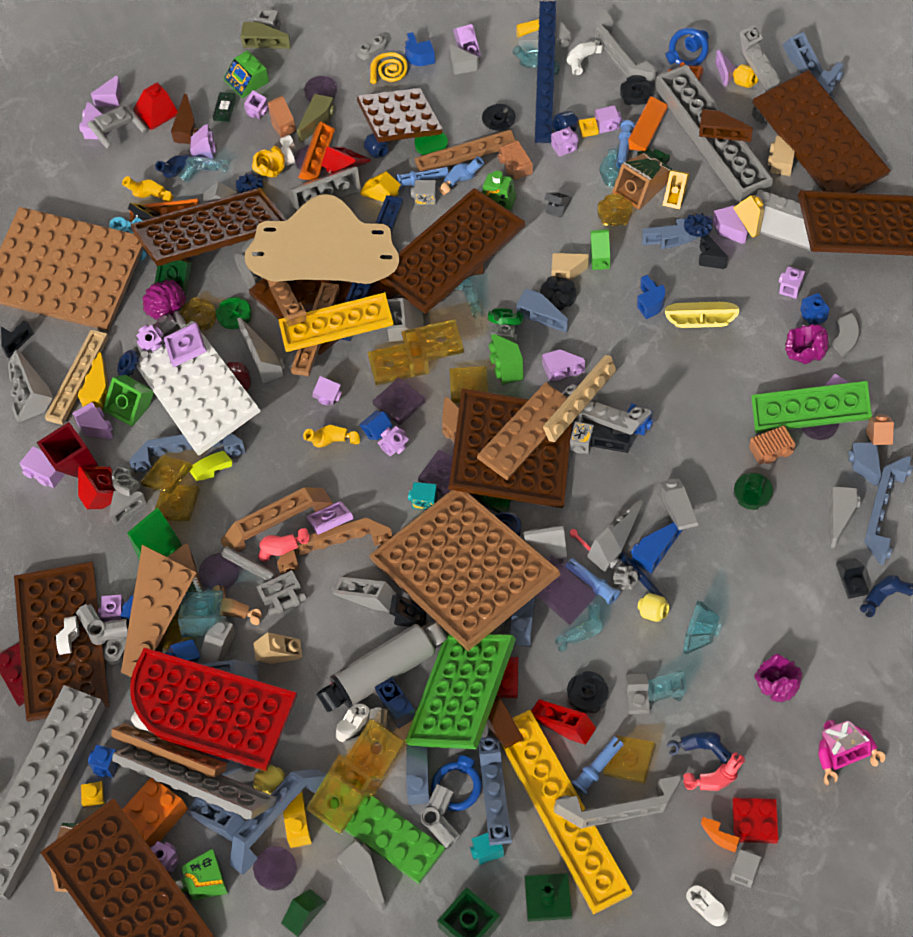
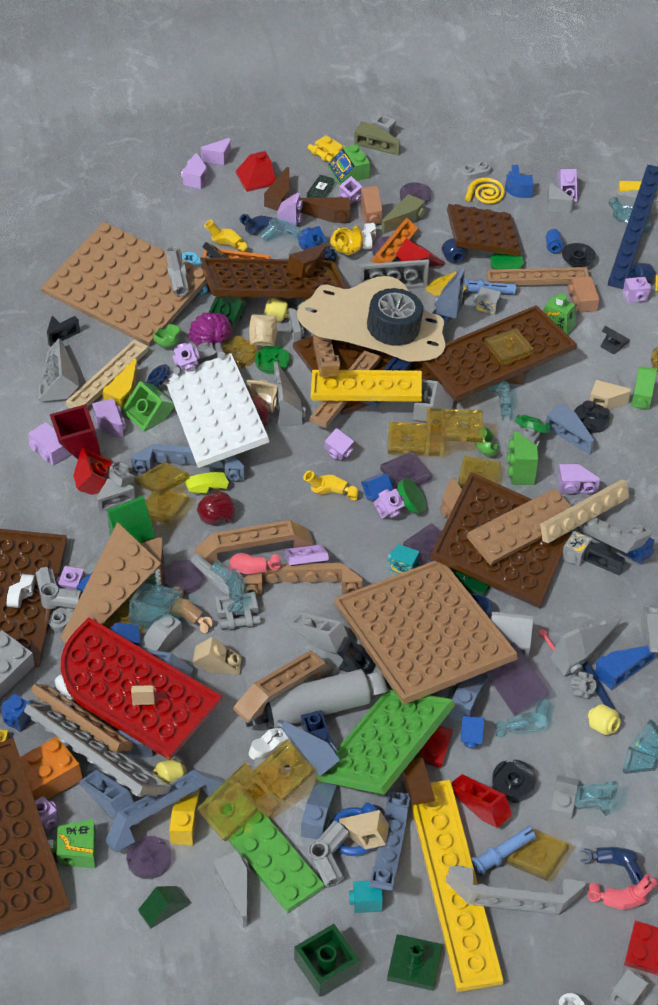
camera: 10 degrees right, 10 degrees down
(112, 246) = (177, 270): none -> light grey piece
(113, 120) = (214, 172): light grey plate -> none
(123, 317) = (168, 337): none -> bright green hair
(185, 344) = (217, 369): lavender plate -> none
(216, 287) = (263, 330): none -> tan piece
(217, 56) = (325, 148): none -> yellow plate
(222, 258) = (278, 308): none -> light yellow head
(222, 715) = (143, 695): none -> tan tile
(228, 492) = (215, 507): none -> dark red hair
(232, 169) = (311, 238): none -> blue brick
(236, 200) = (306, 261): none -> reddish brown slope
(237, 353) = (264, 390): none -> tan piece
(242, 129) = (329, 209): none -> reddish brown slope
(271, 567) = (235, 584): none -> clear light blue arm
(342, 241) = (394, 316): none -> black wheel
(346, 662) = (255, 699): none -> medium nougat slope
(390, 203) = (450, 299): none -> sand blue slope
(397, 720) = (314, 750): none -> sand blue slope
(412, 426) = (413, 496): none -> green tile
(461, 172) = (527, 293): medium blue arm -> none
(461, 241) = (509, 346): none -> clear yellow plate
(469, 783) = (367, 829): none -> tan slope
(470, 353) = (487, 447): none -> bright green hair
(471, 107) = (554, 241): none -> blue brick
(536, 654) = (472, 731): none -> blue brick
(599, 586) = (554, 686): medium blue pin -> none
(720, 838) = (611, 955): orange slope -> none

